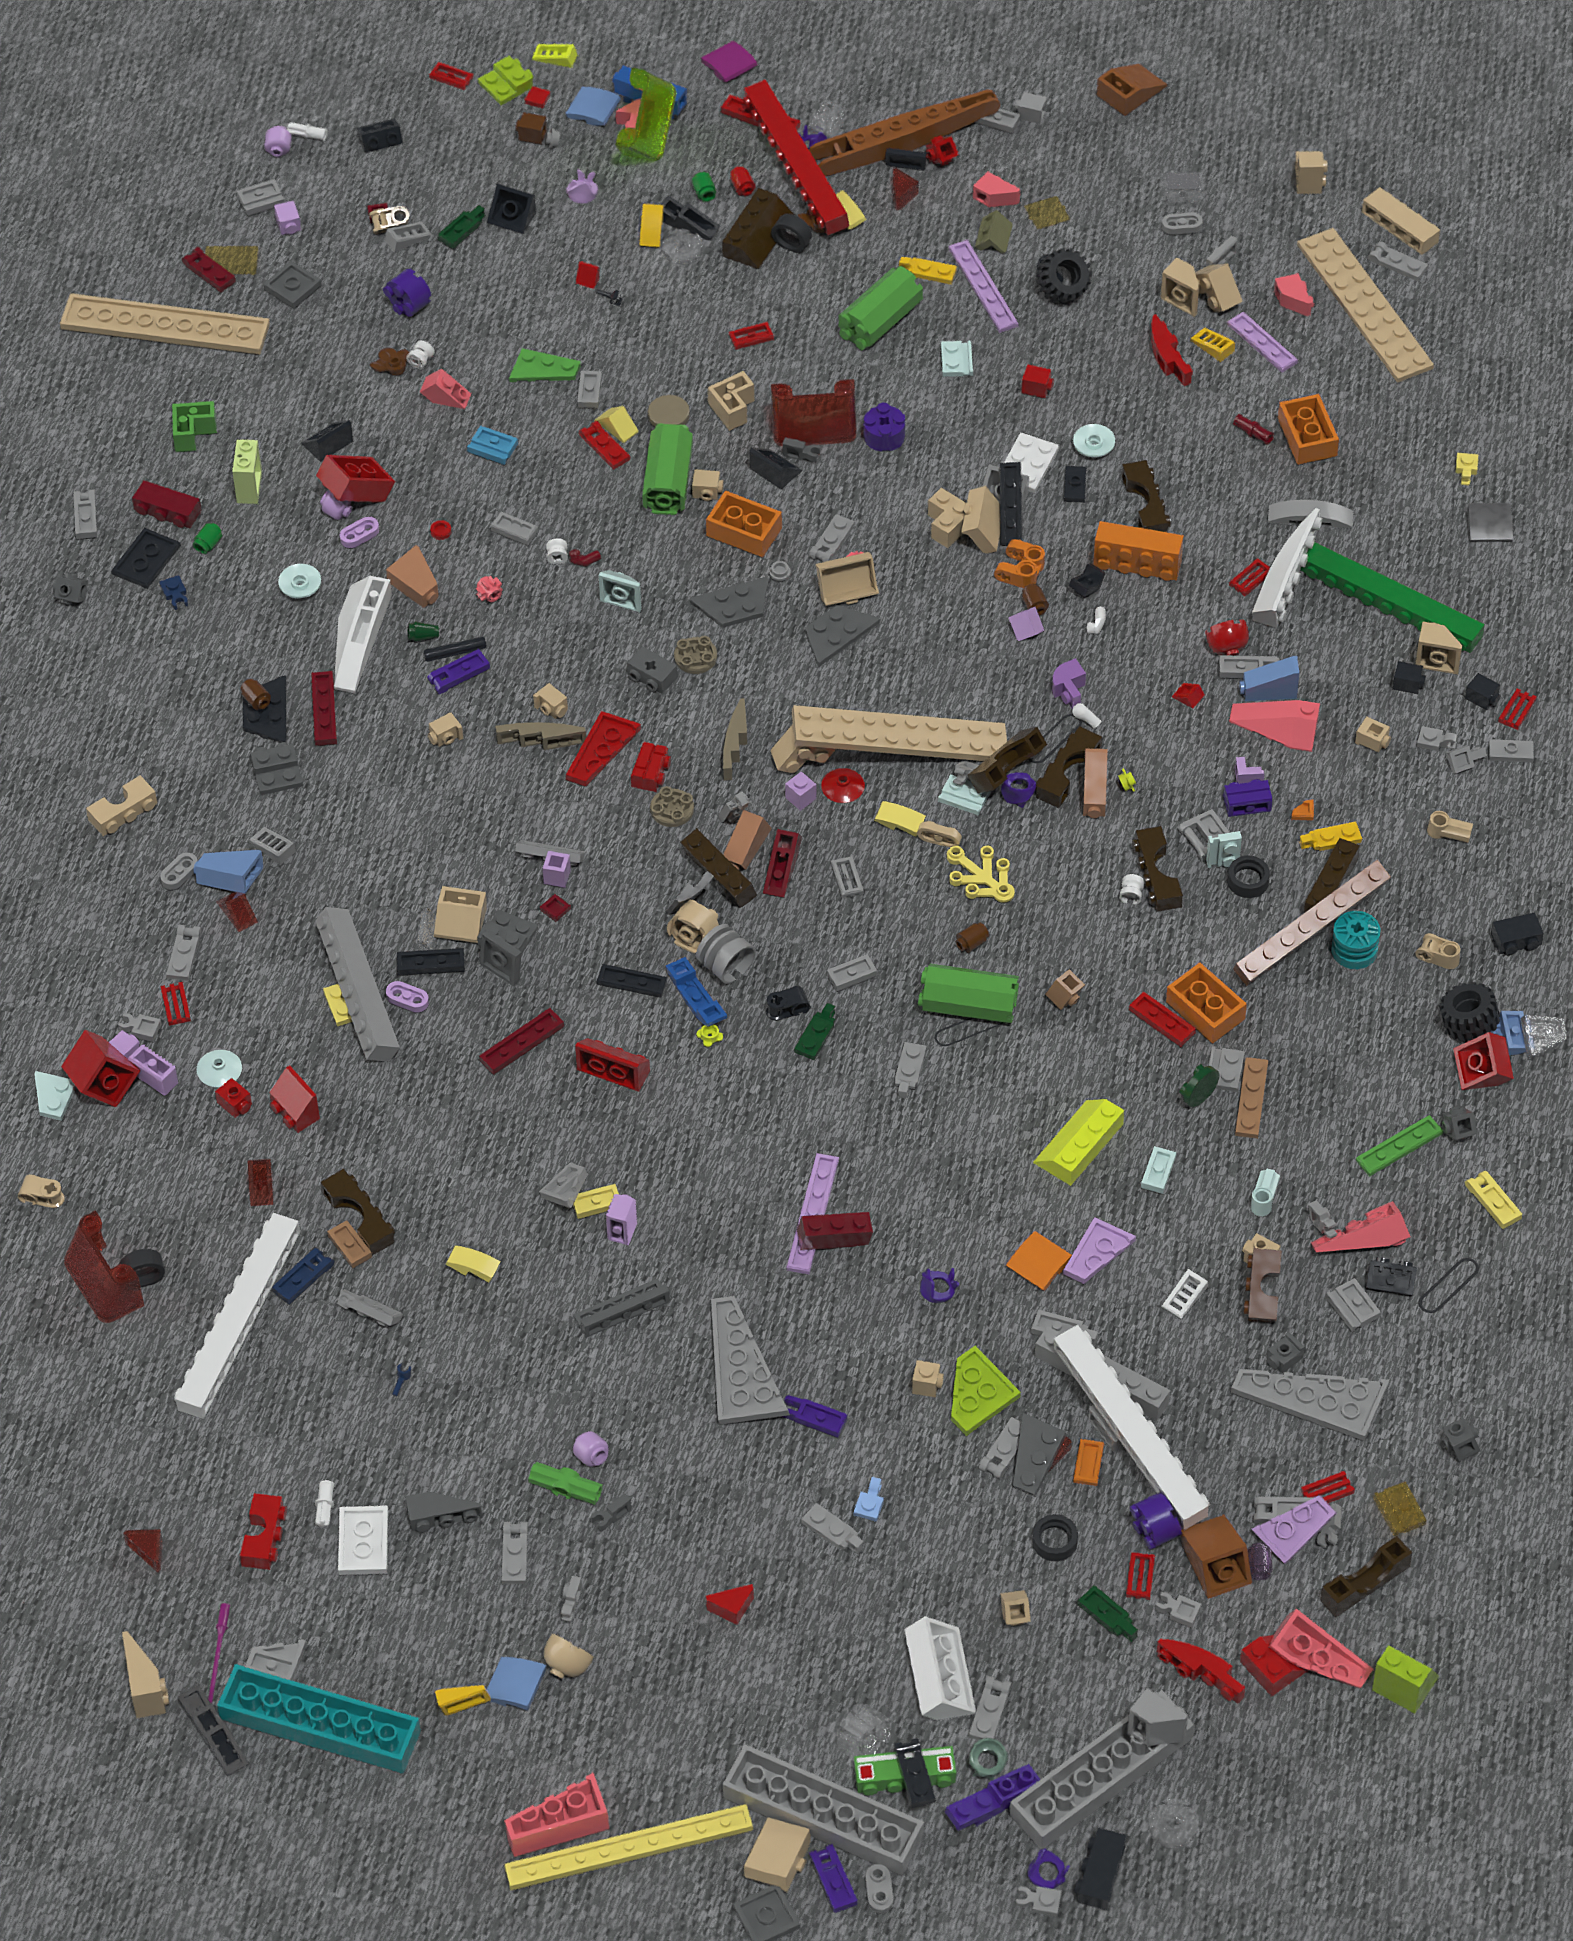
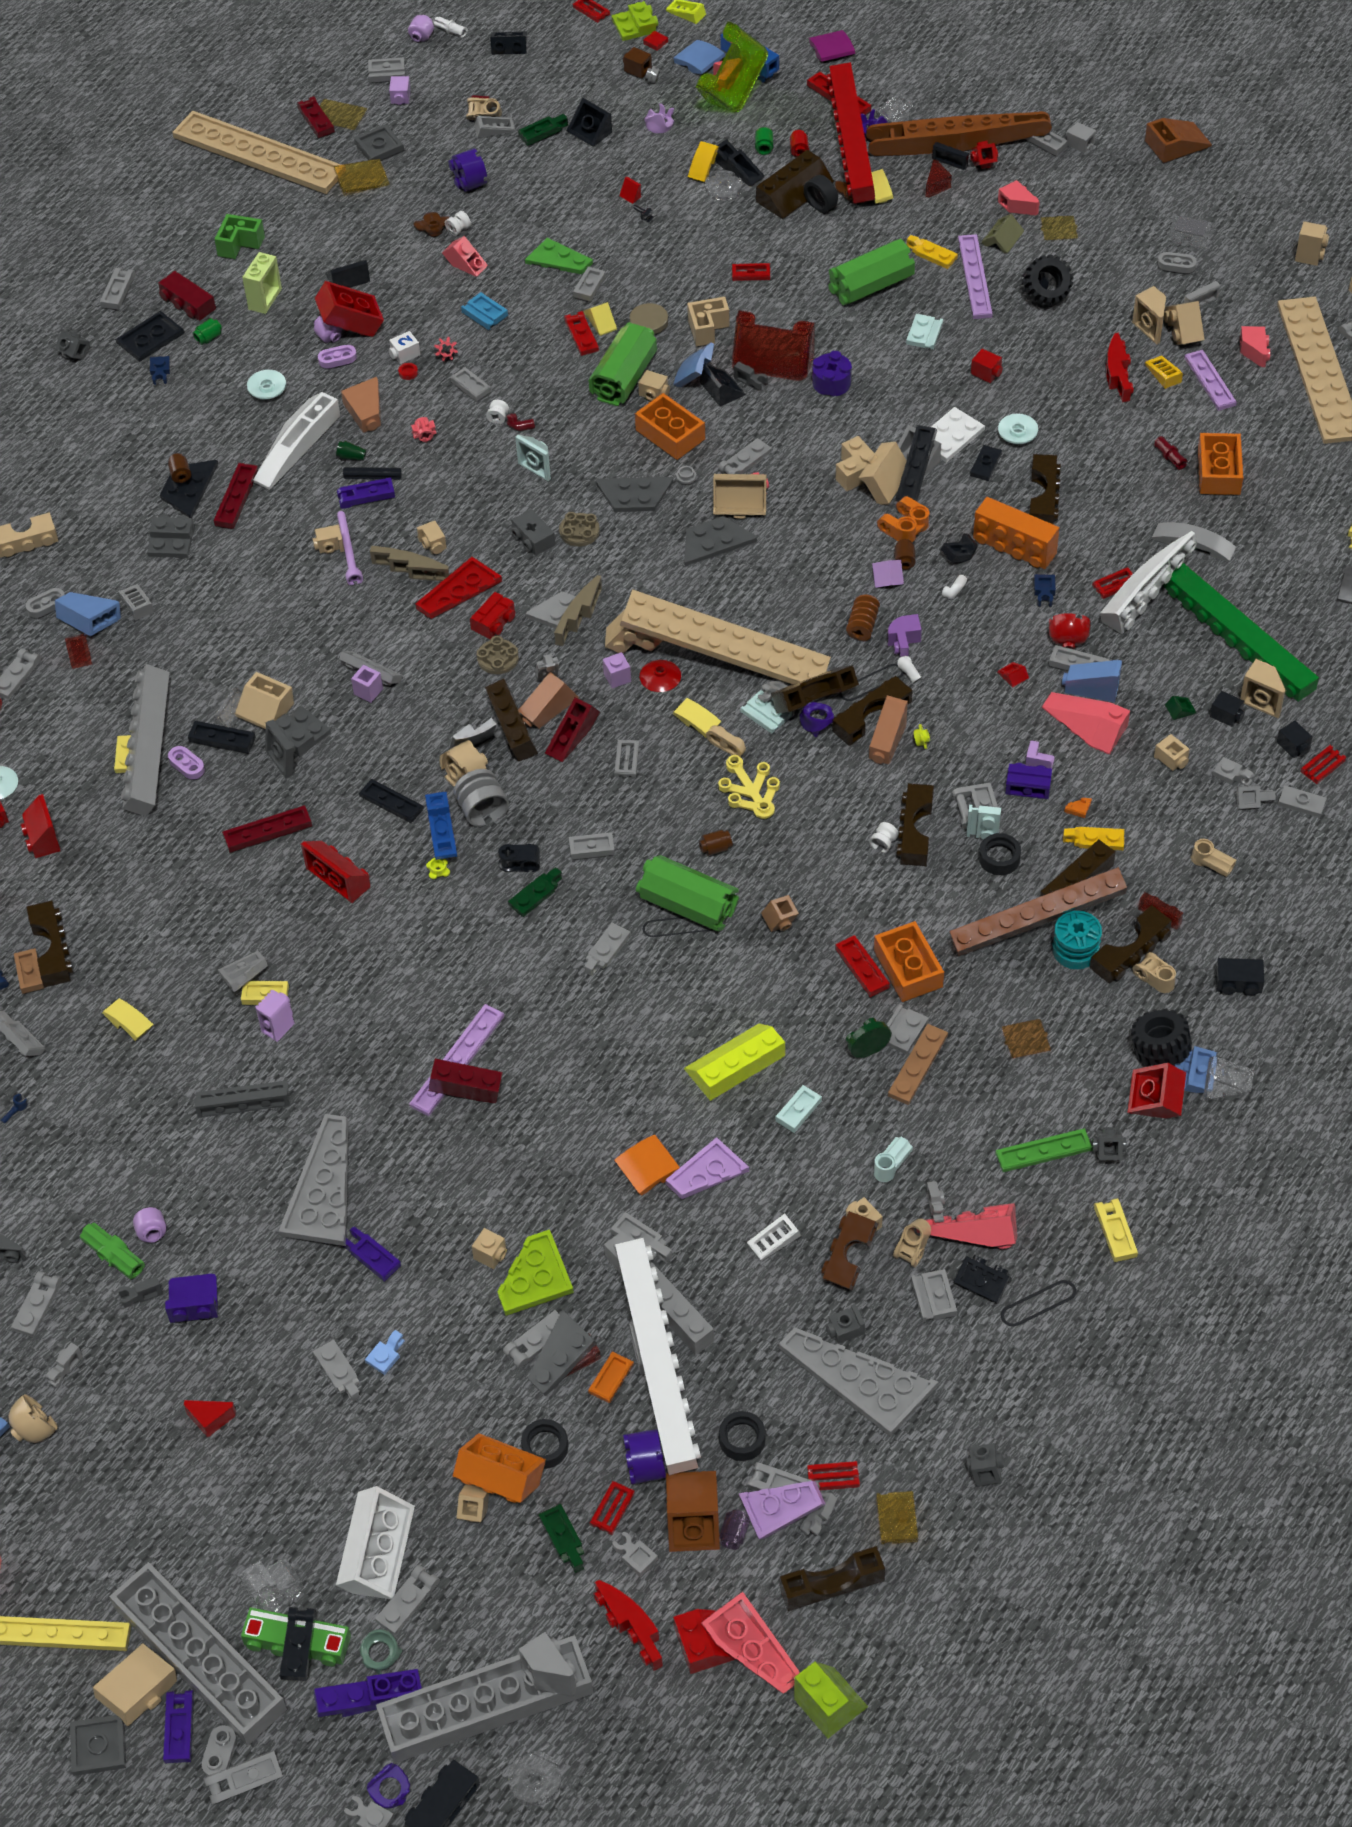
camera: 20 degrees right, 0 degrees up
(290, 325) = (361, 175): none -> clear yellow piece
(427, 505) = (404, 347): none -> white brick
(466, 497) = (451, 349): none -> coral gear
(485, 758) = (352, 573): none -> lavender piece
(555, 907) = (353, 718): dark red tile -> none
(664, 1504) = (192, 1298): none -> dark purple bracket
(707, 746) = (551, 610): none -> light grey wing
(740, 453) = (693, 365): none -> medium blue slope
(913, 1900) = (244, 1776): none -> light grey plate
(927, 1286) = (535, 1171): dark purple piece -> none
(1021, 675) = (863, 617): none -> dark orange piece
(1027, 1569) = (499, 1468): none -> orange brick
(1185, 599) = (1045, 588): none -> dark blue plate
(1229, 1494) = (739, 1453): none -> black tyre
(1317, 1265) = (912, 1246): none -> tan piece
(1341, 1046) = (1026, 1038): none -> clear orange piece
(1361, 687) = (1179, 707): none -> dark green slope
(1395, 950) = (1113, 961): none -> dark brown arch
(1421, 891) = (1171, 912): none -> clear red plate

